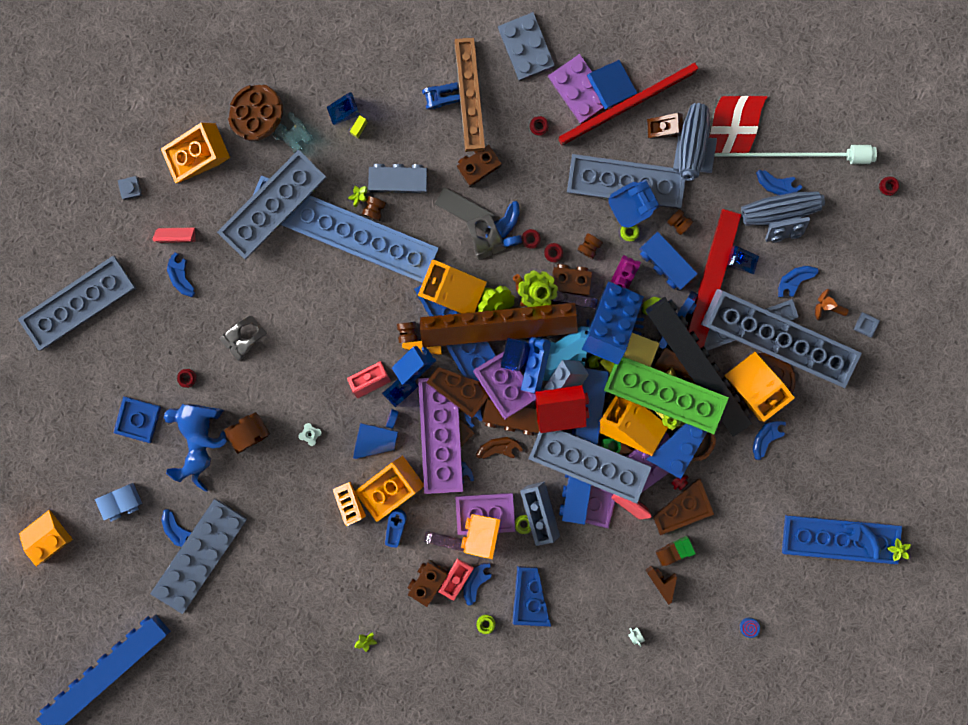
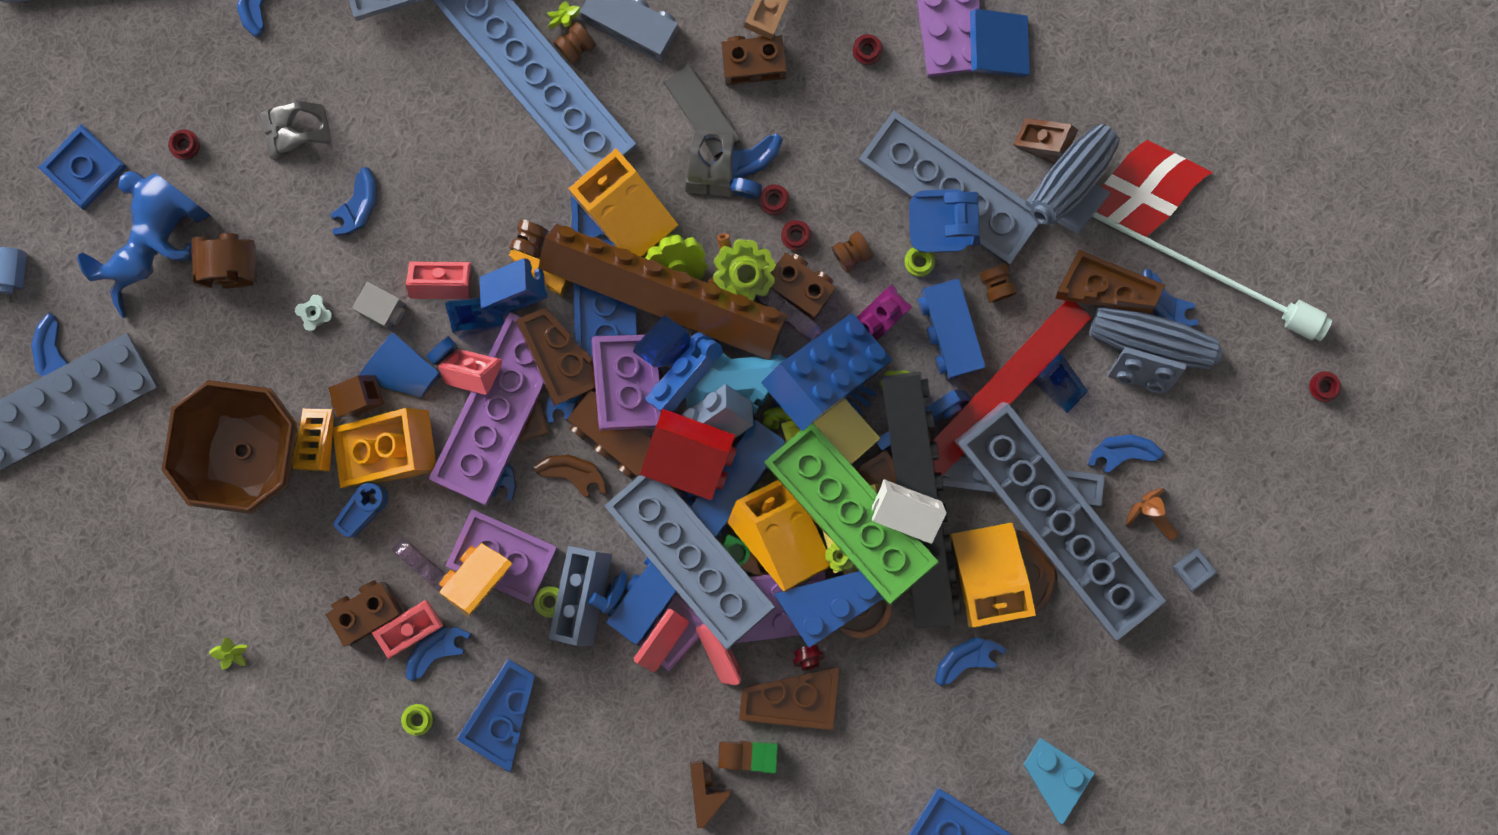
camera: 30 degrees right, 5 degrees down
(296, 545) = (206, 440): none -> reddish brown rock
(303, 361) = (359, 207): none -> blue piece
(345, 412) = (379, 306): none -> light grey brick
(359, 468) = (356, 395): none -> reddish brown brick
(414, 422) = (470, 371): none -> coral slope
(557, 504) = (612, 594): none -> blue piece
(596, 514) = (661, 640): none -> coral slope
(628, 104) = (1008, 82): red tile -> none
(698, 378) = (908, 511): none -> white hinge
(740, 192) = (1108, 285): none -> reddish brown wing
(847, 476) = (1057, 778): none -> dark azure wing

